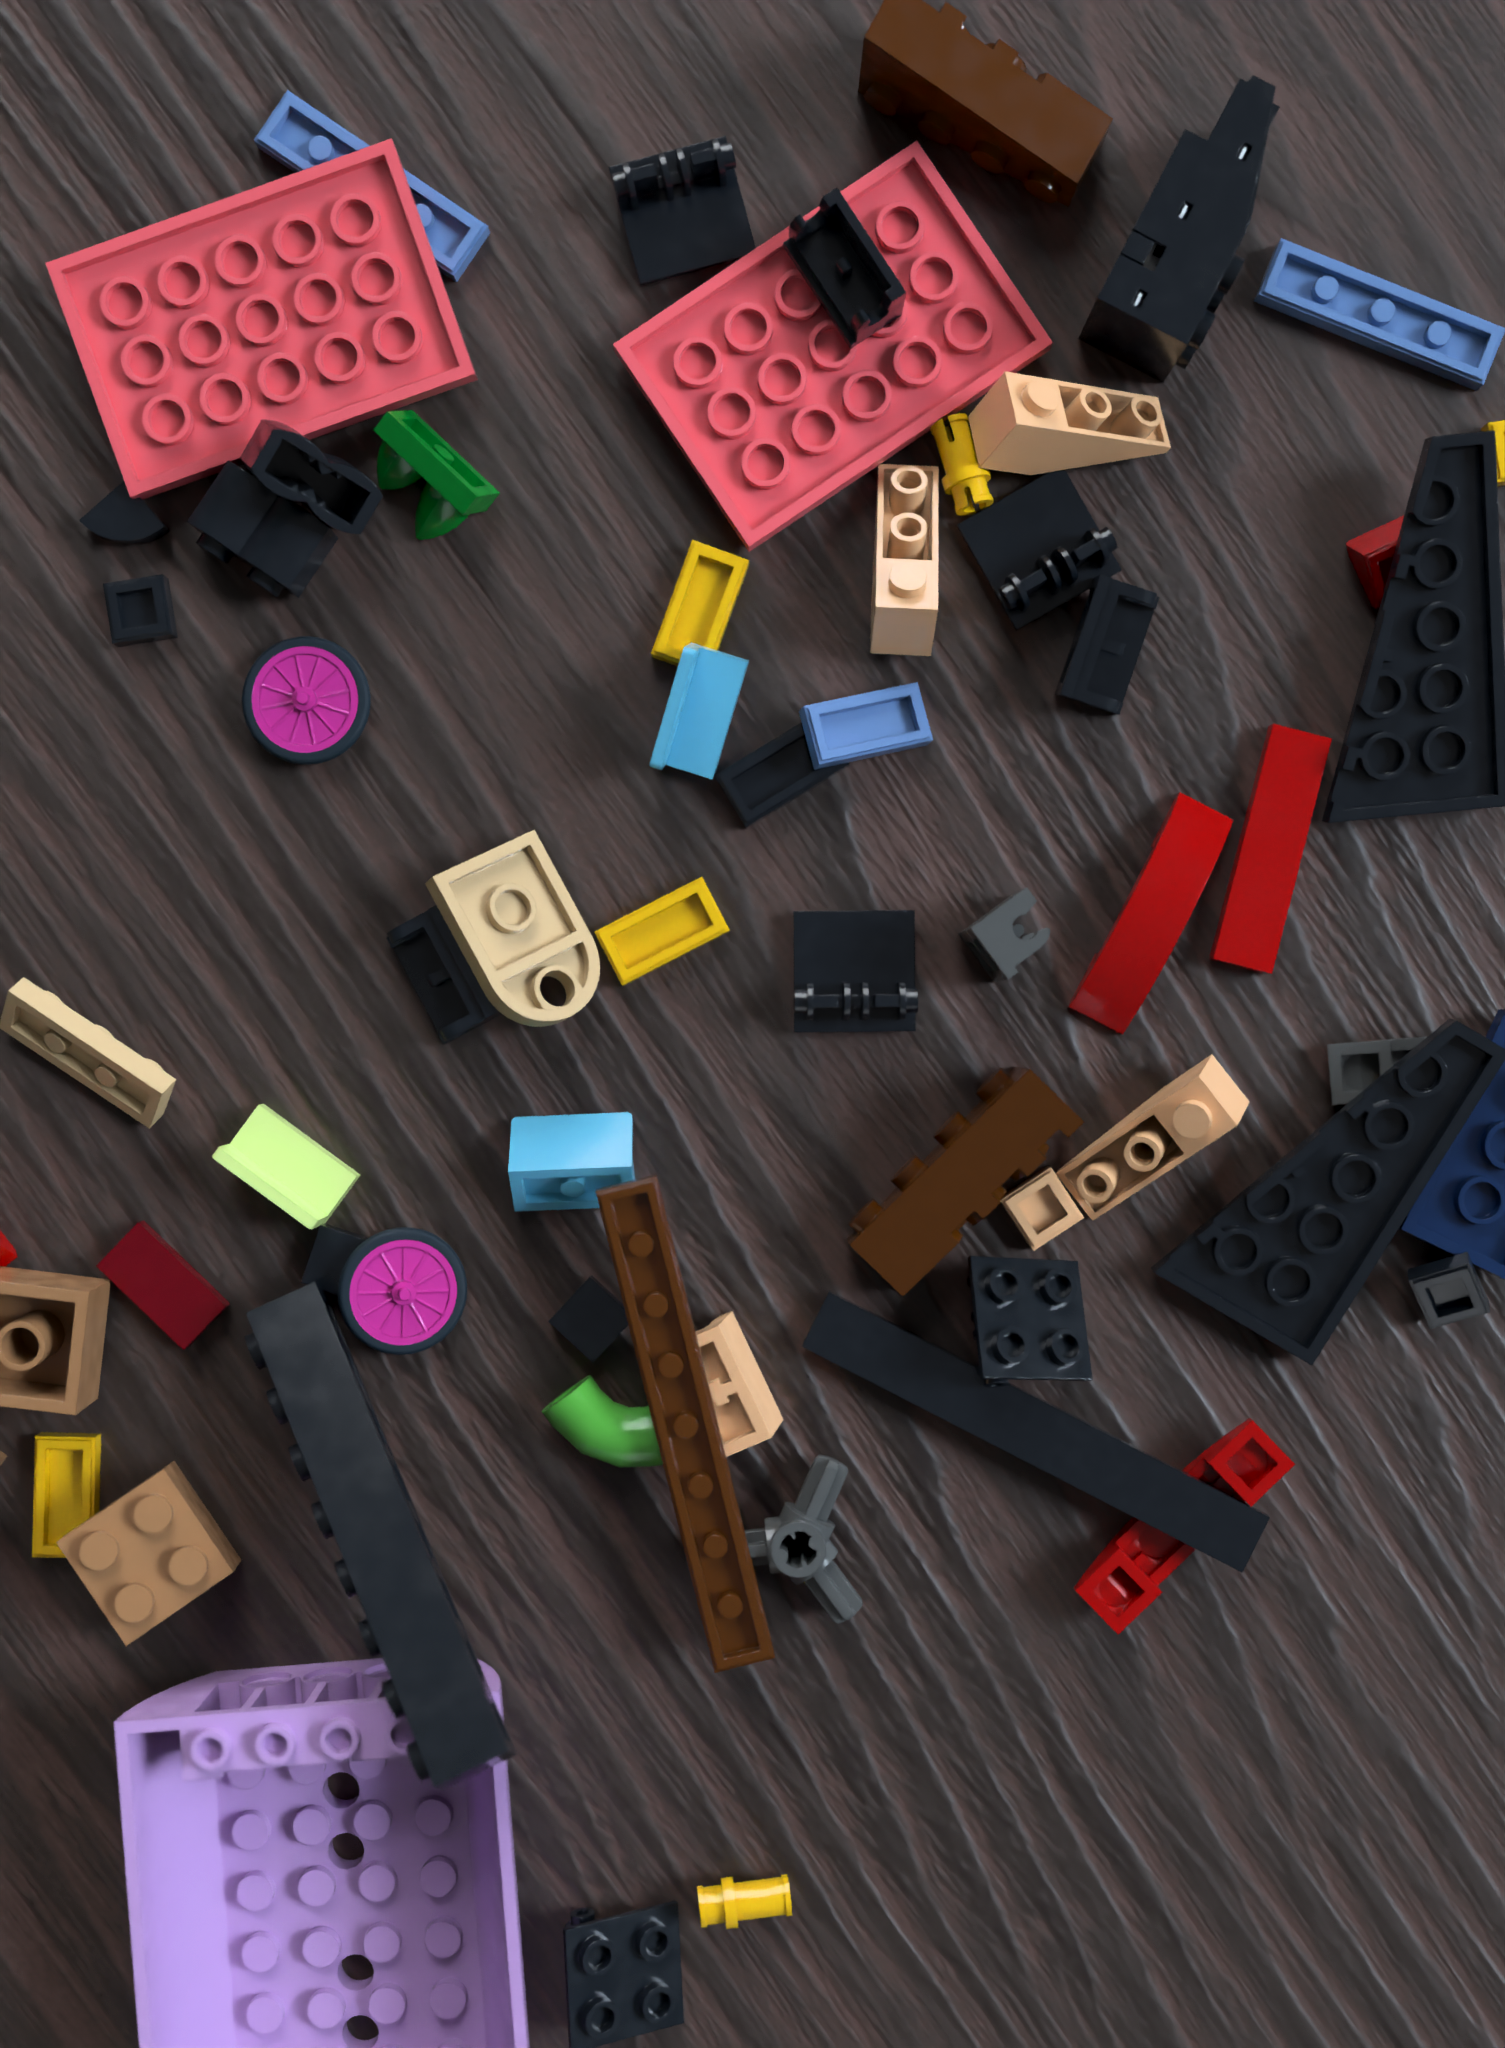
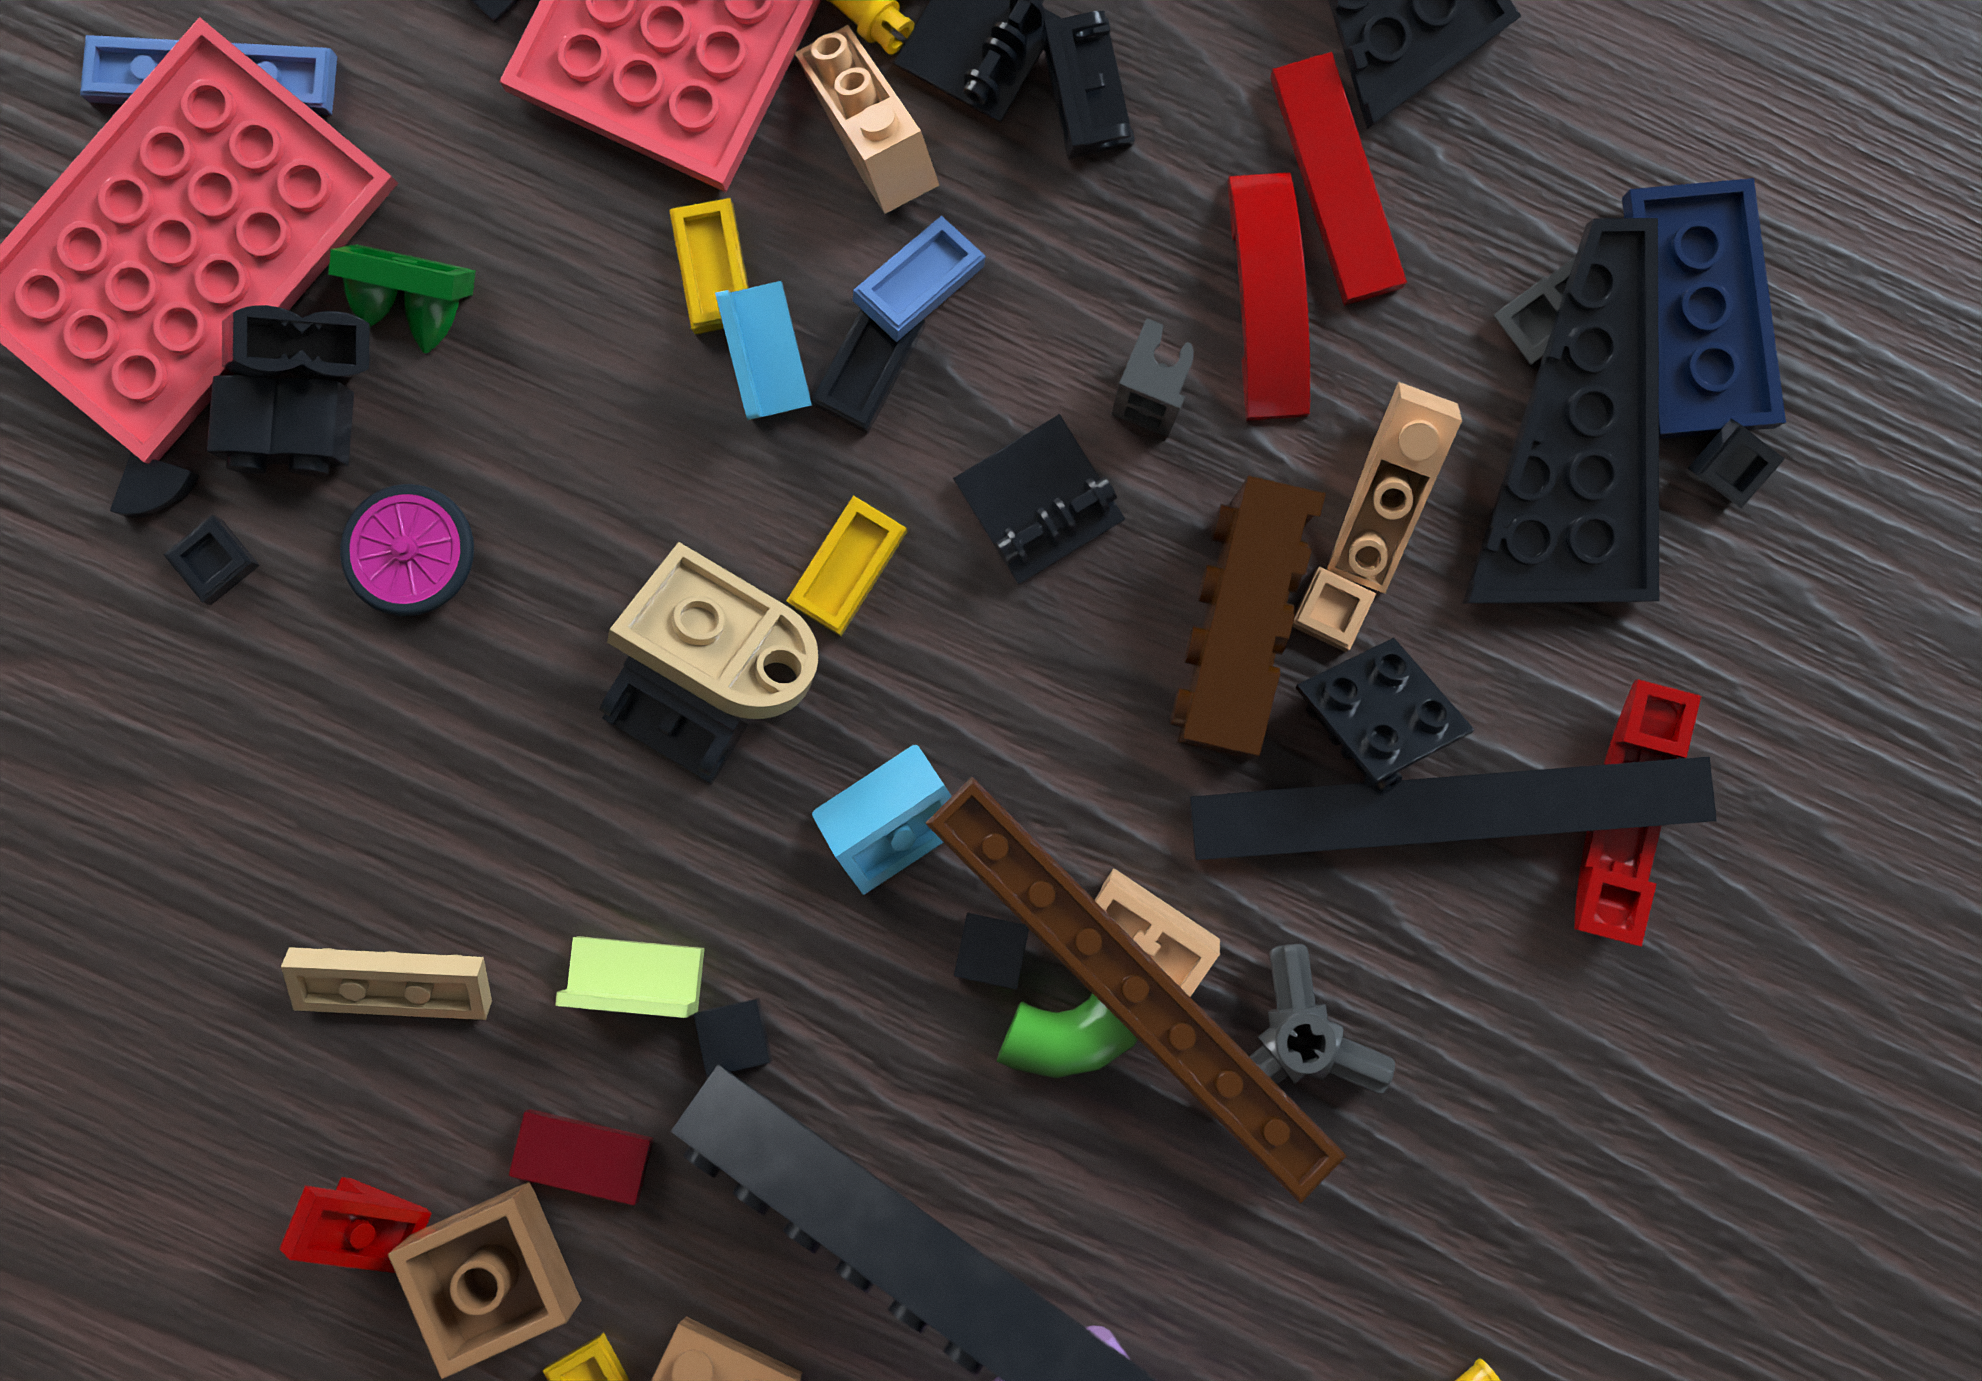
camera: 30 degrees left, 5 degrees down
(402, 1291) = (804, 1029): dark pink wheel -> none

